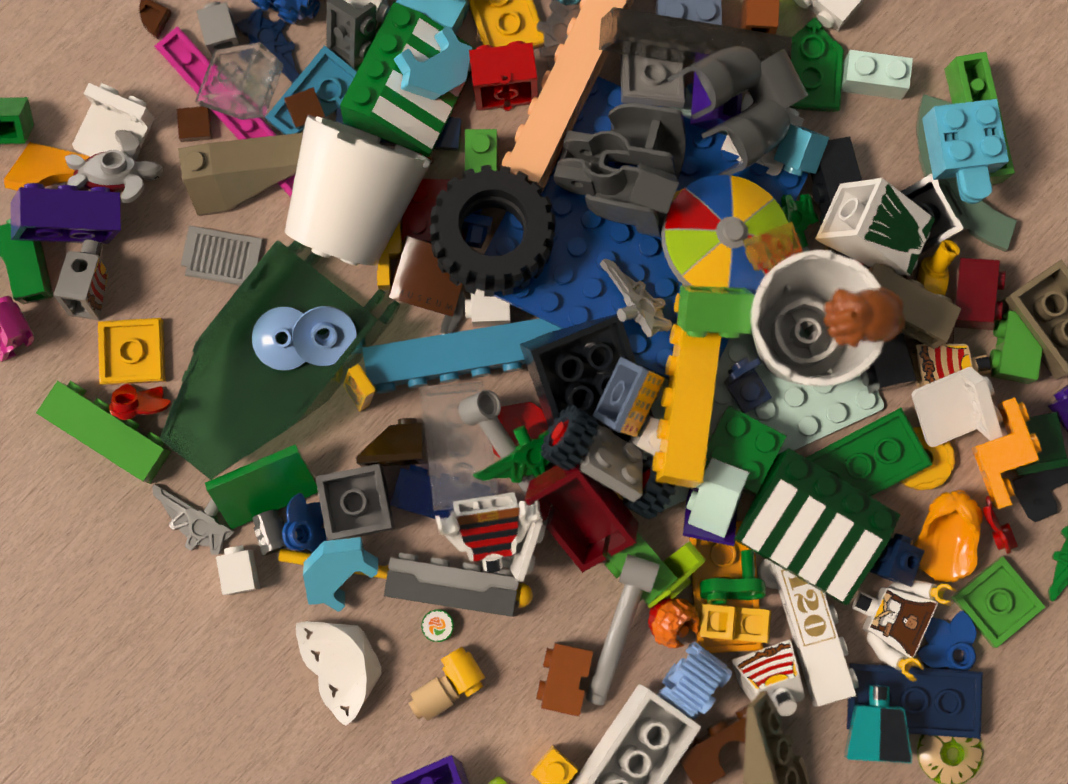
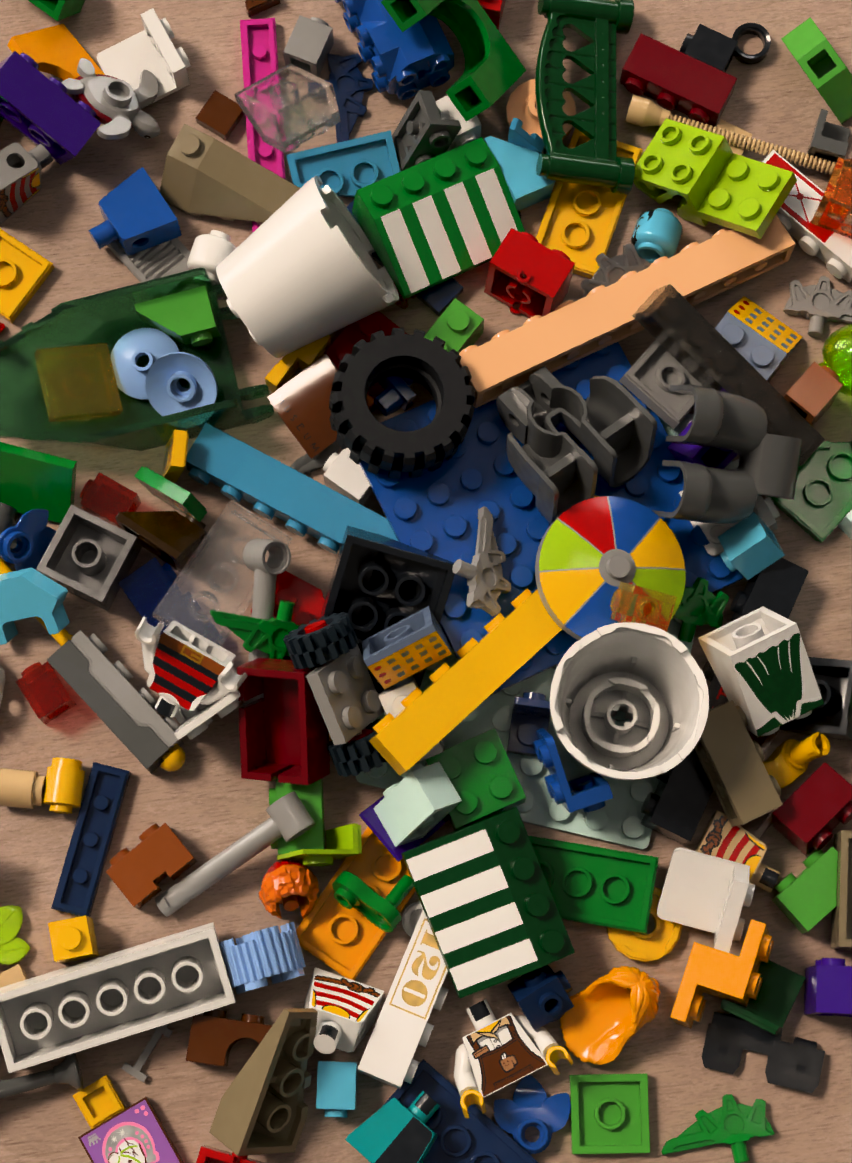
camera: 35 degrees right, 5 degrees down
(193, 240) = (135, 216): none -> blue torso
(249, 387) = (78, 382): none -> clear yellow tile
(269, 226) = (209, 252): none -> white head
(285, 285) = (183, 316): none -> bright green slope
(302, 105) = (330, 169): reddish brown tile -> none
(335, 453) = (107, 498): none -> clear red brick
(376, 415) = (171, 493): none -> green tile
(397, 618) = (45, 691): none -> clear red brick
(437, 625) = (75, 727): tile -> none
(439, 72) = (470, 229): medium azure piece -> none
(510, 693) = (91, 840): none -> dark blue tile
(654, 188) = (572, 470): dark grey panel -> none
(715, 310) = (541, 624): bright green brick -> none
(735, 623) = (346, 936): yellow slope -> none
(809, 728) = (336, 1088): none -> medium azure brick
(816, 406) = (580, 793): none -> blue bracket
(864, 316) = (668, 728): dark orange hair -> none
(1003, 533) = (662, 1052): red plate -> none

